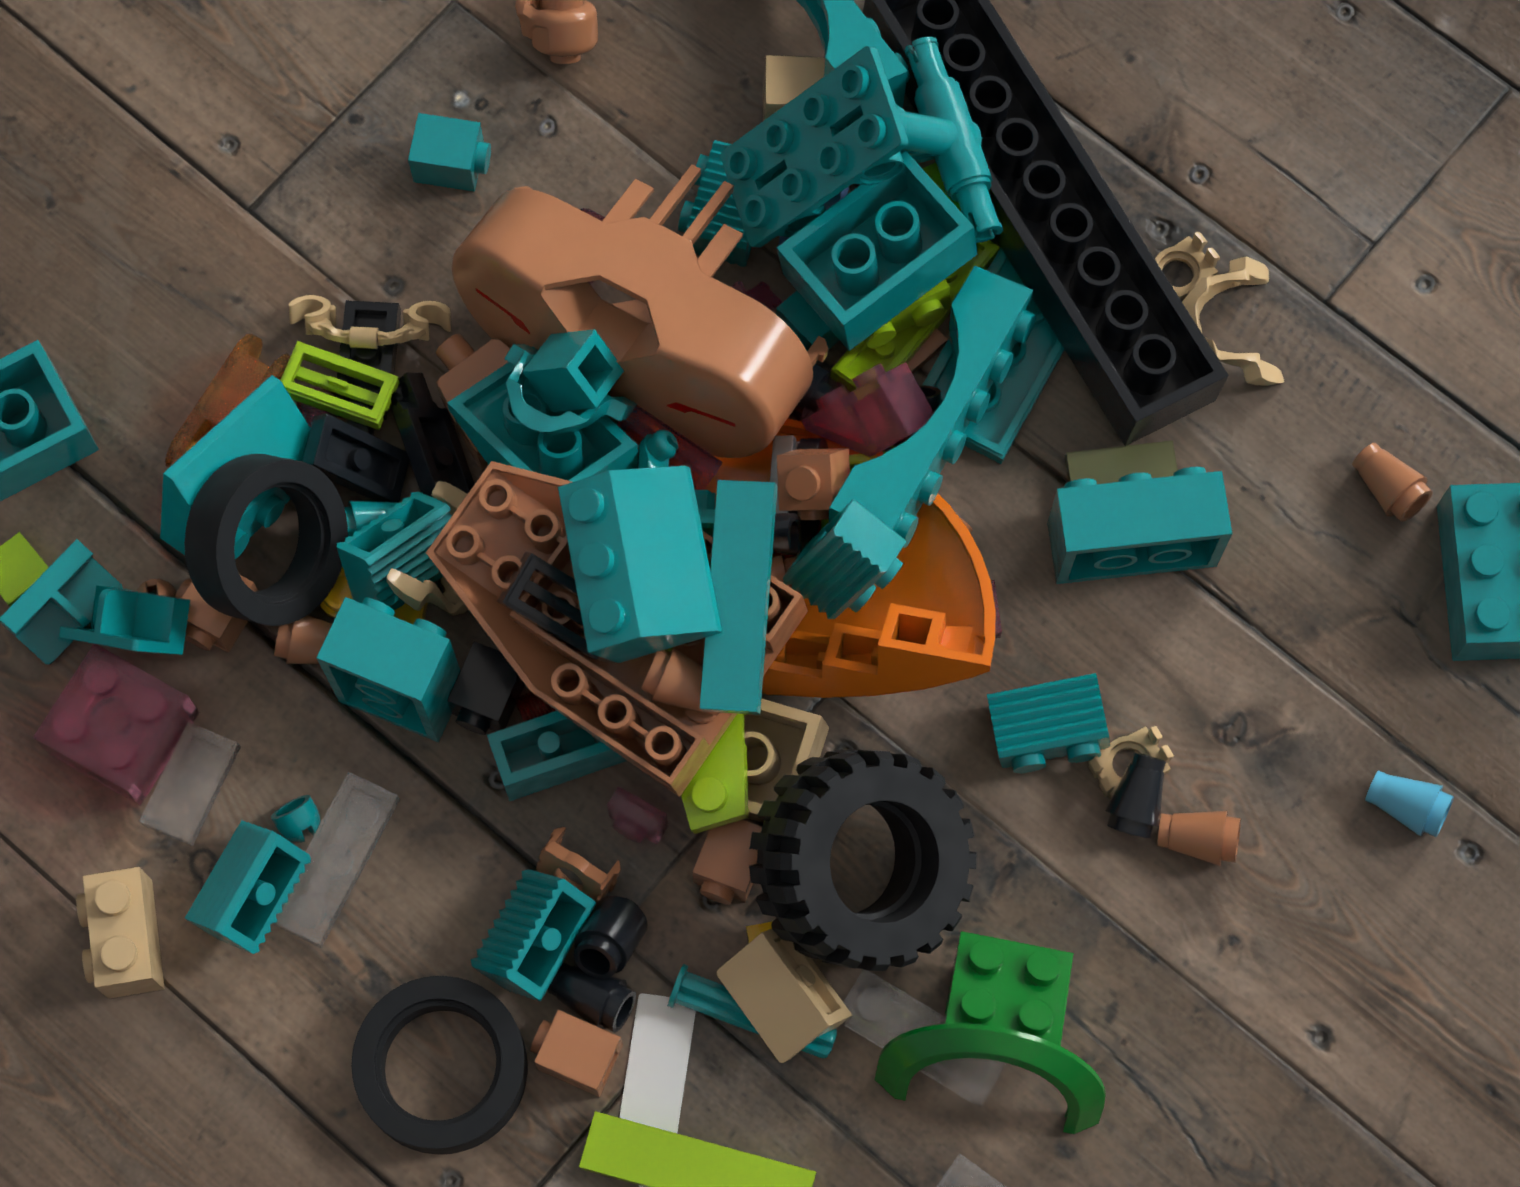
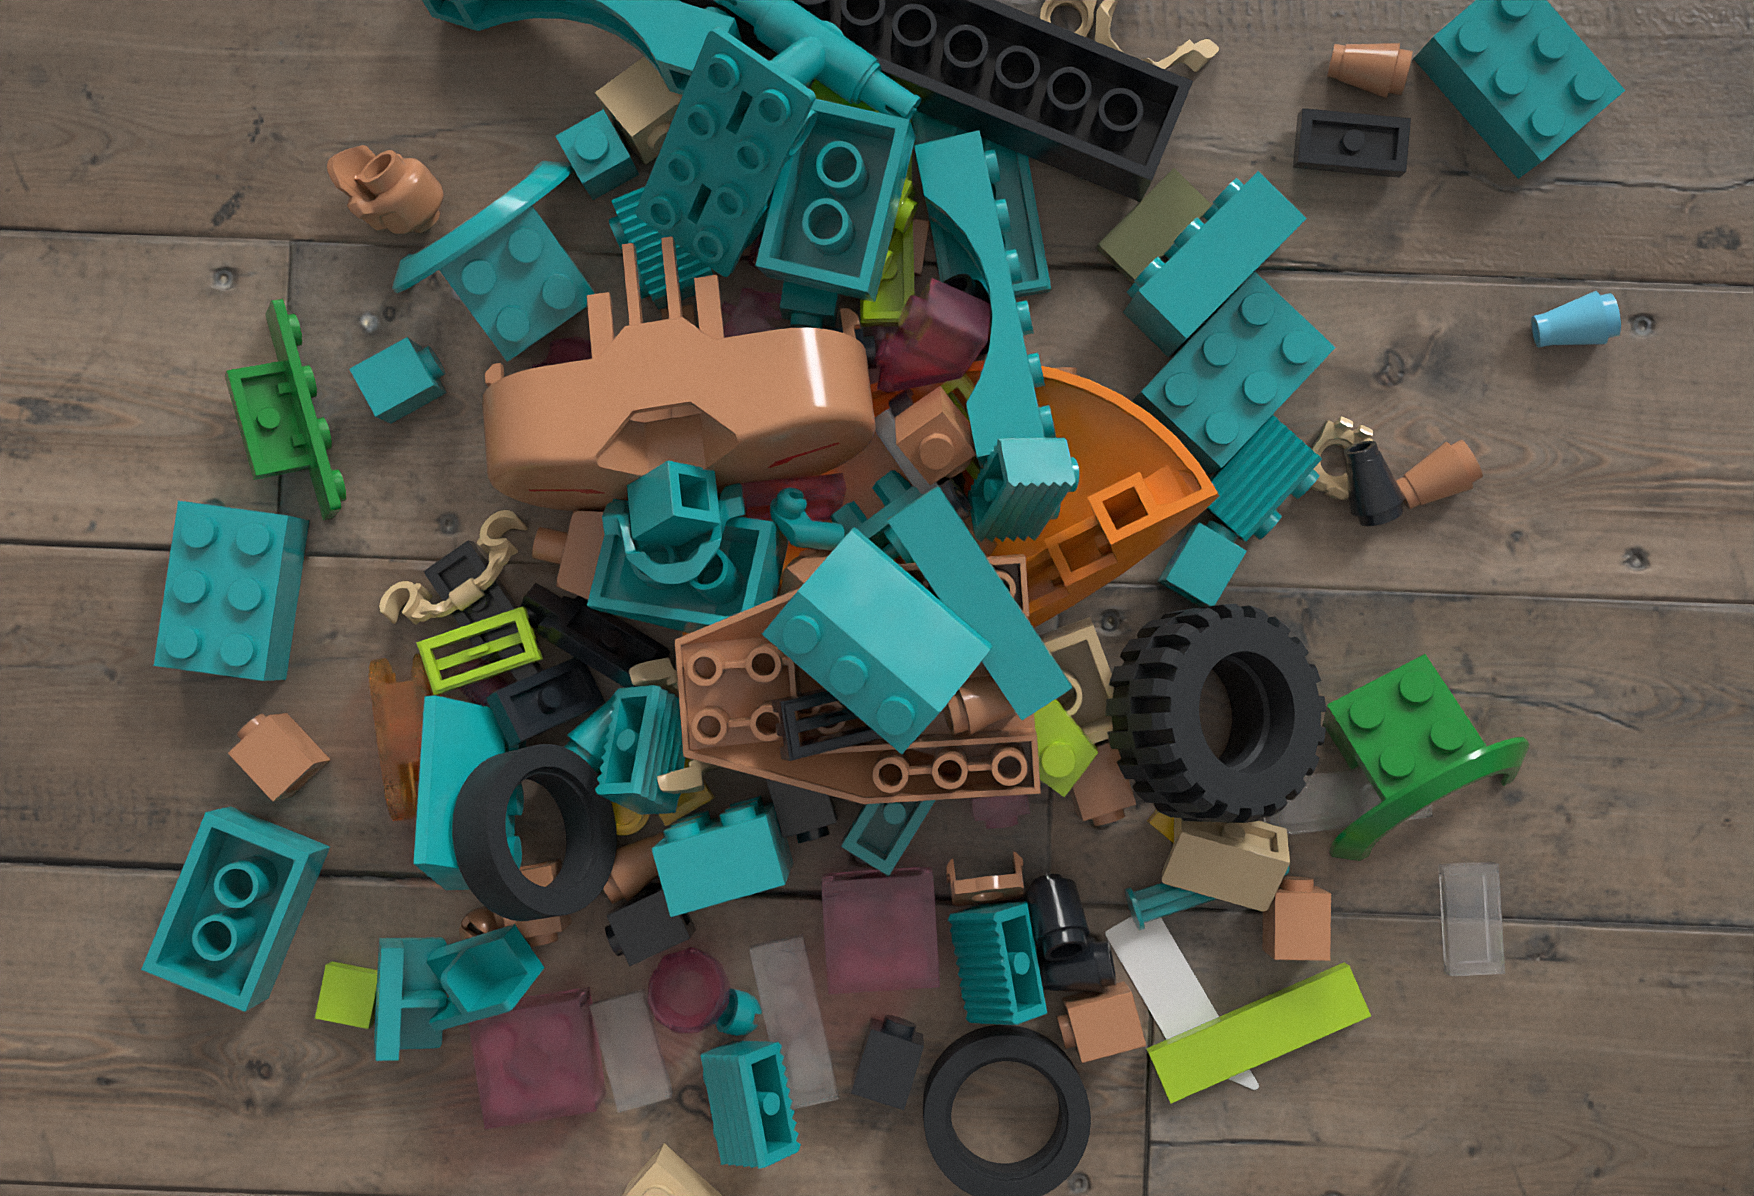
camera: 35 degrees left, 15 degrees up
(122, 350) = (277, 755): none -> nougat brick
(194, 207) = (231, 592): none -> teal brick
(275, 767) = (688, 991): none -> clear pink hair
(288, 693) = (645, 927): none -> black brick
(336, 111) = (279, 415): none -> green bracket
(382, 946) = (888, 1061): none -> black brick
(463, 836) = (880, 930): none -> clear pink brick
(596, 125) = (507, 266): none -> teal piece
(731, 102) = (597, 154): none -> teal brick
(802, 1096) = (1298, 921): none -> nougat brick
(956, 751) = (1203, 563): none -> teal brick
(1093, 620) = (1234, 373): none -> teal brick
(1331, 527) = (1351, 143): none -> black plate

